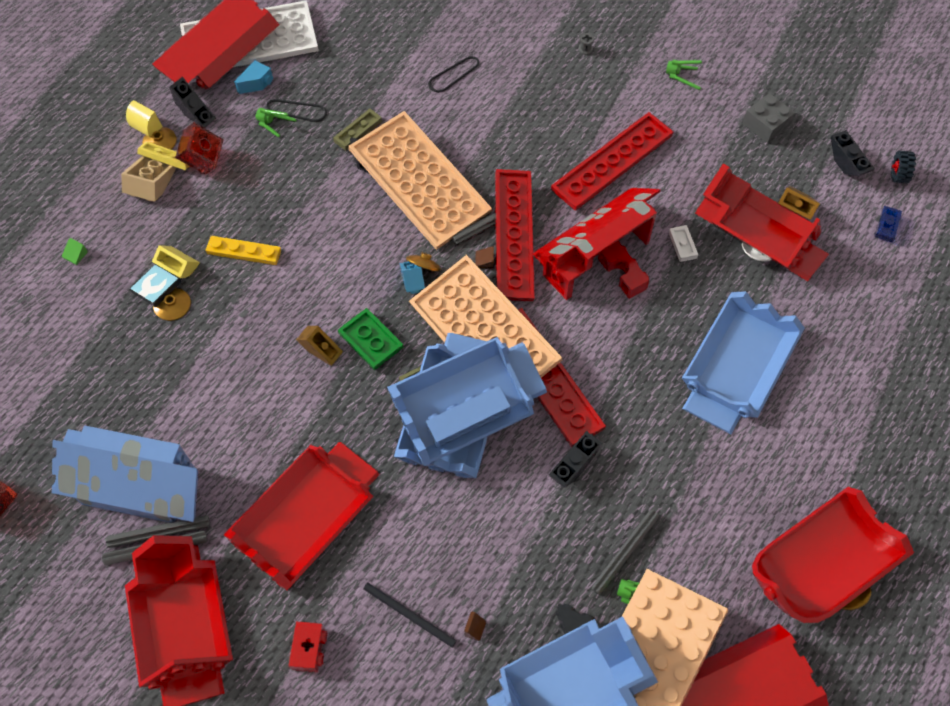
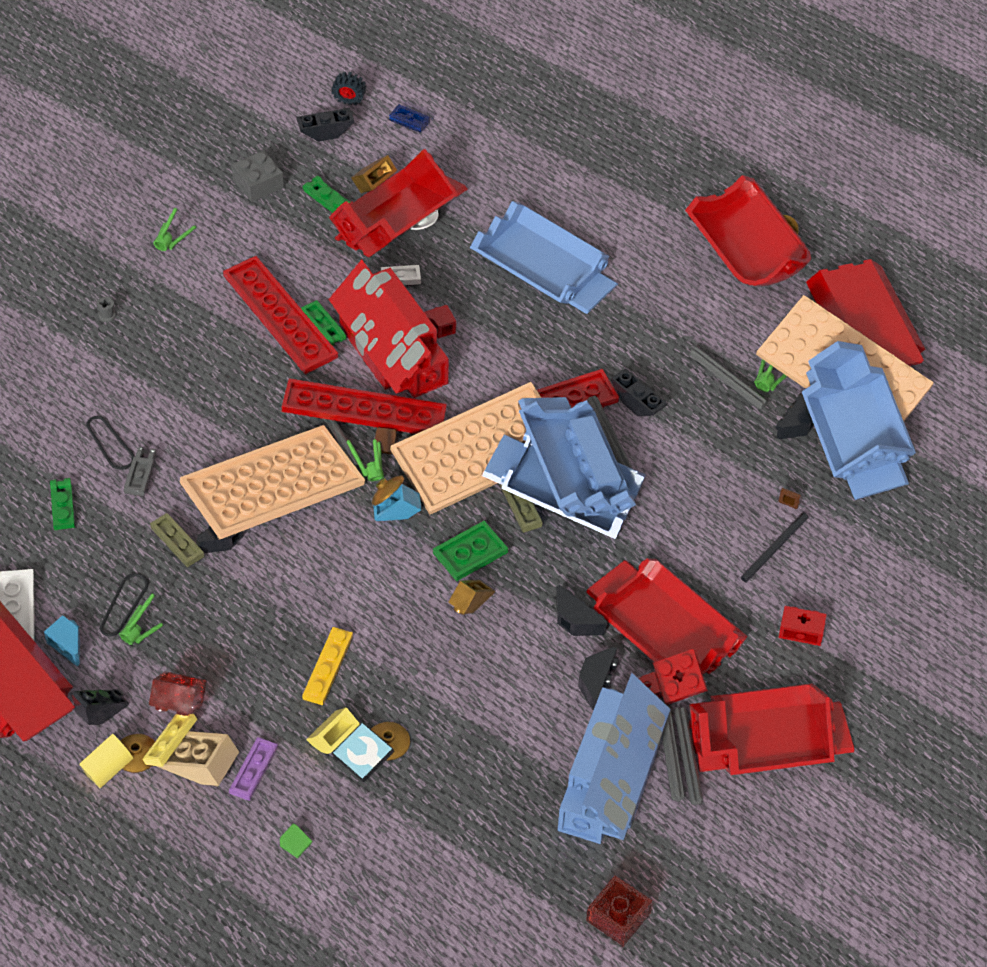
camera: 85 degrees left, 10 degrees down
(143, 215) = (253, 768): none -> medium lavender tile
(227, 513) = (666, 686): none -> red plate
(234, 456) = (596, 674): none -> black slope
(305, 431) = (577, 616): none -> black slope
(387, 55) = (62, 504): none -> green plate
(424, 95) = (140, 473): none -> dark grey hinge
(448, 251) = (374, 469): none -> bright green plant
(520, 441) = (614, 443): none -> dark grey axle
(610, 191) = (324, 322): none -> green plate
(766, 173) = (325, 194): none -> green plate

